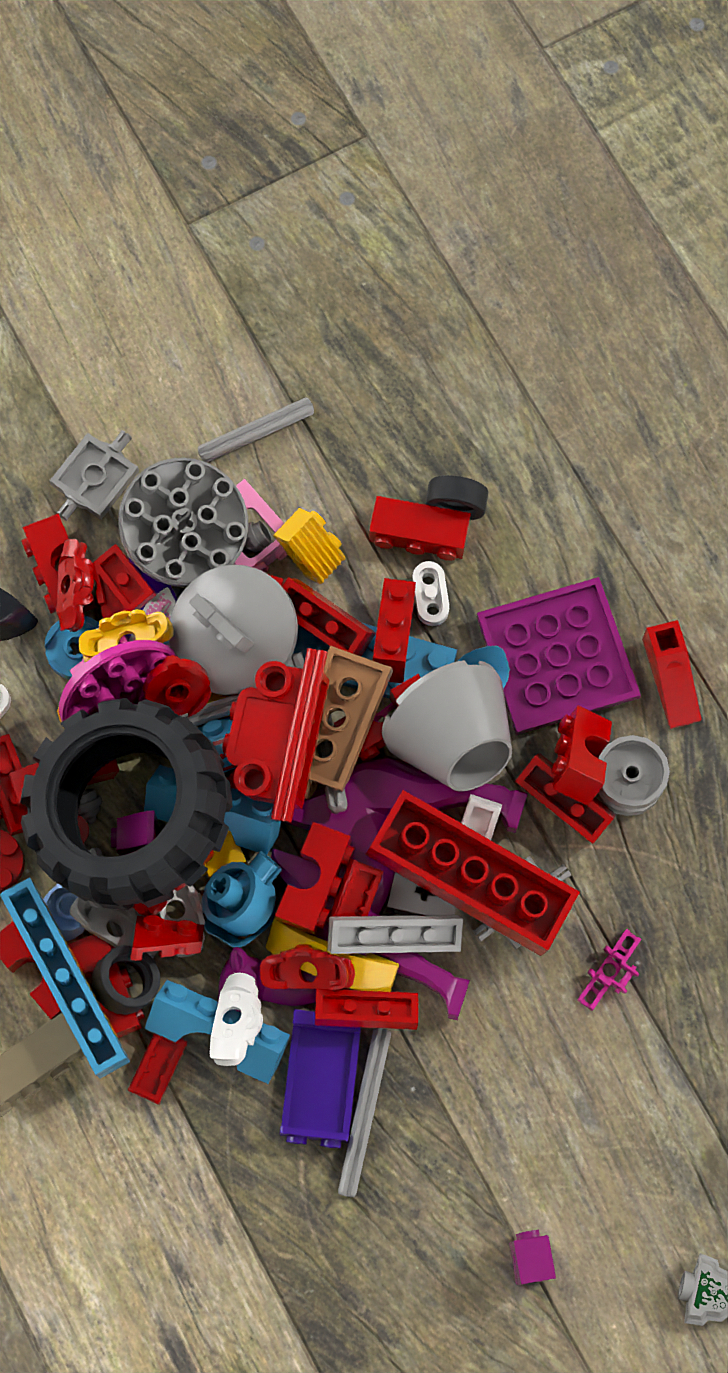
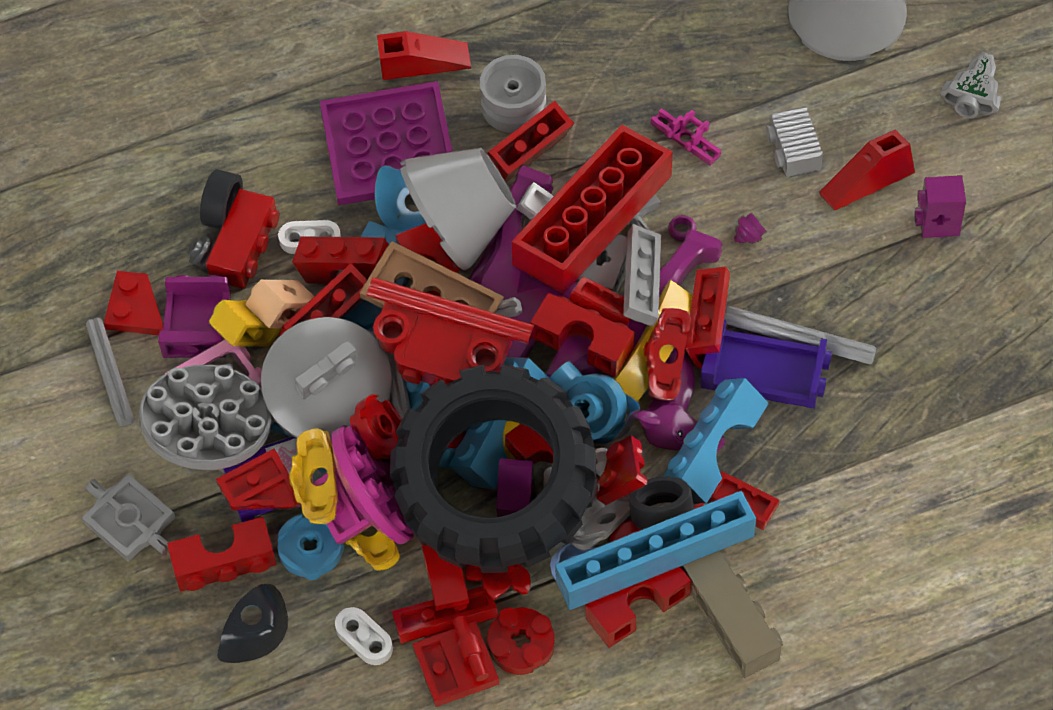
camera: 80 degrees left, 15 degrees down
(79, 569) = (274, 528): red piece -> none
(230, 1041) = (730, 409): white piece -> none
(329, 492) = (188, 312): none -> magenta panel
(334, 575) = (277, 301): none -> light nougat brick
(335, 438) = (133, 305): none -> red wing
(402, 490) = (200, 251): none -> dark grey plate
(488, 964) = (682, 219): none -> magenta piece
(491, 1049) = (749, 229): none -> magenta plate
(576, 1175) = (871, 169): none -> red slope
(577, 766) = (508, 117): red arch -> none
(611, 1089) = (795, 142): none -> light grey brick

